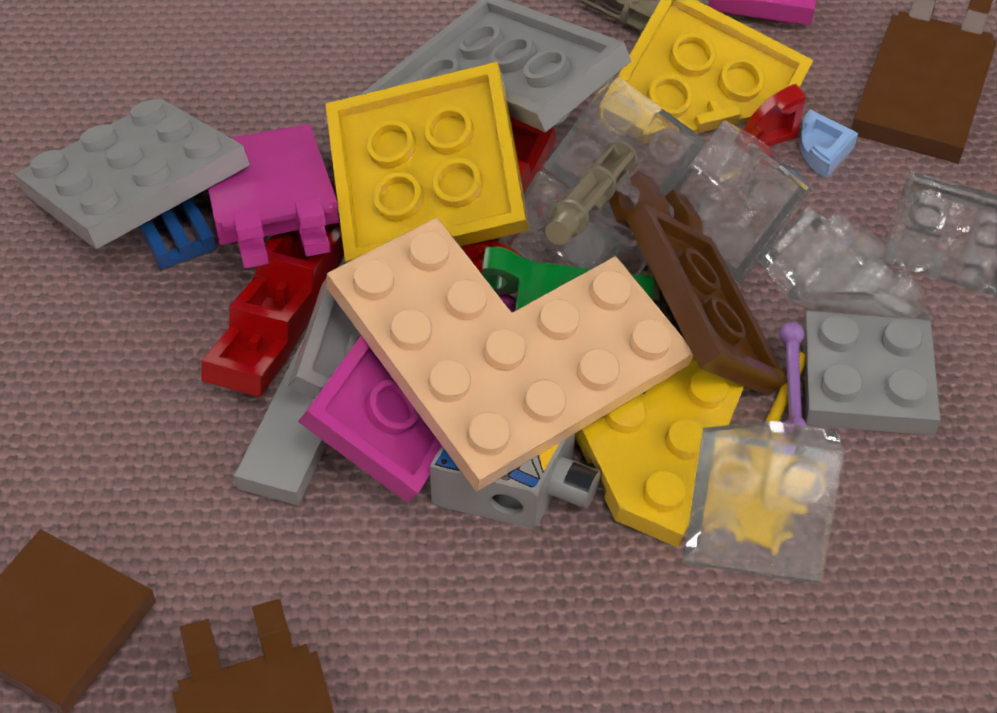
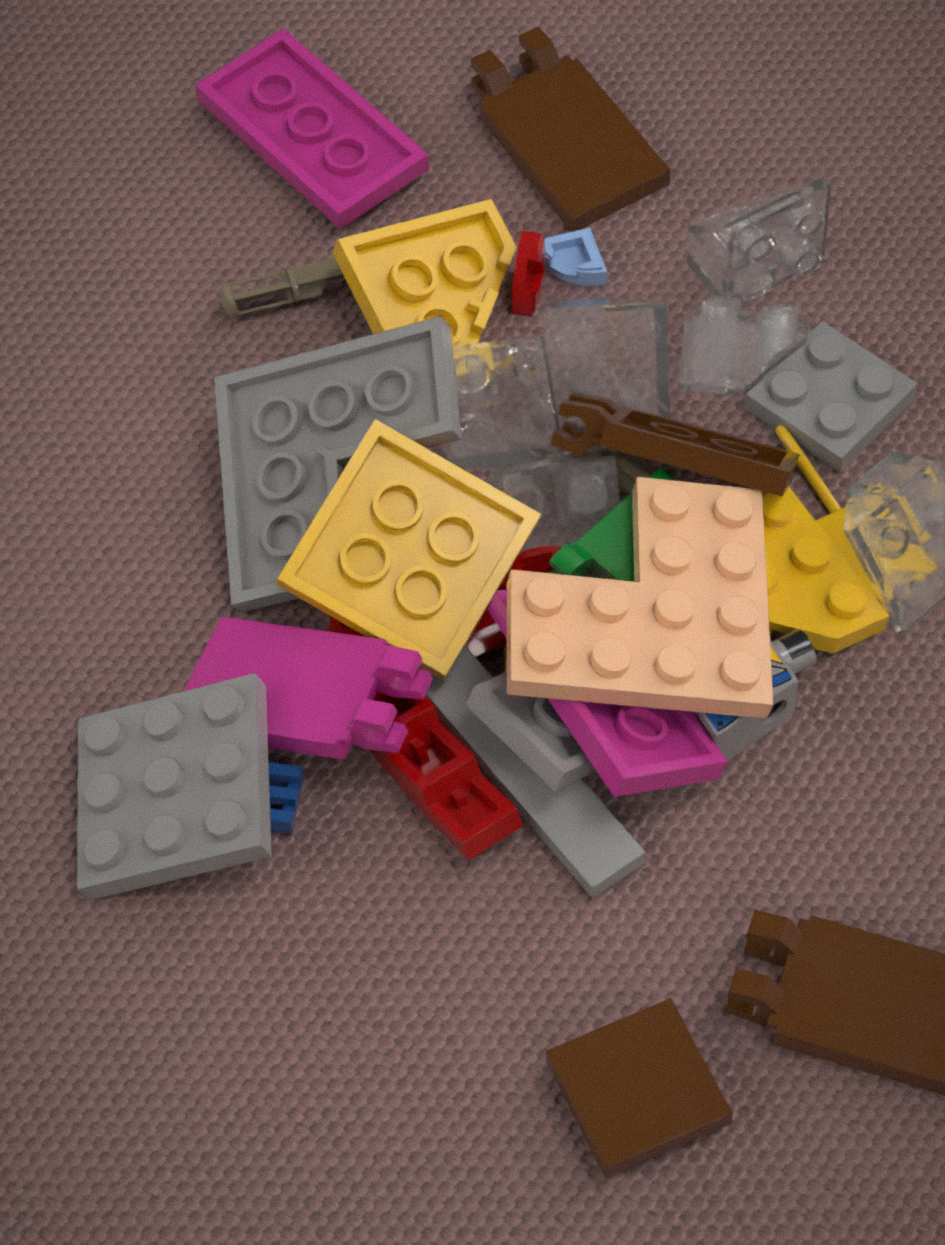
camera: 50 degrees left, 5 degrees up
(593, 189) = (553, 449): dark tan piece -> none
(792, 335) = (765, 419): medium lavender hinge -> none

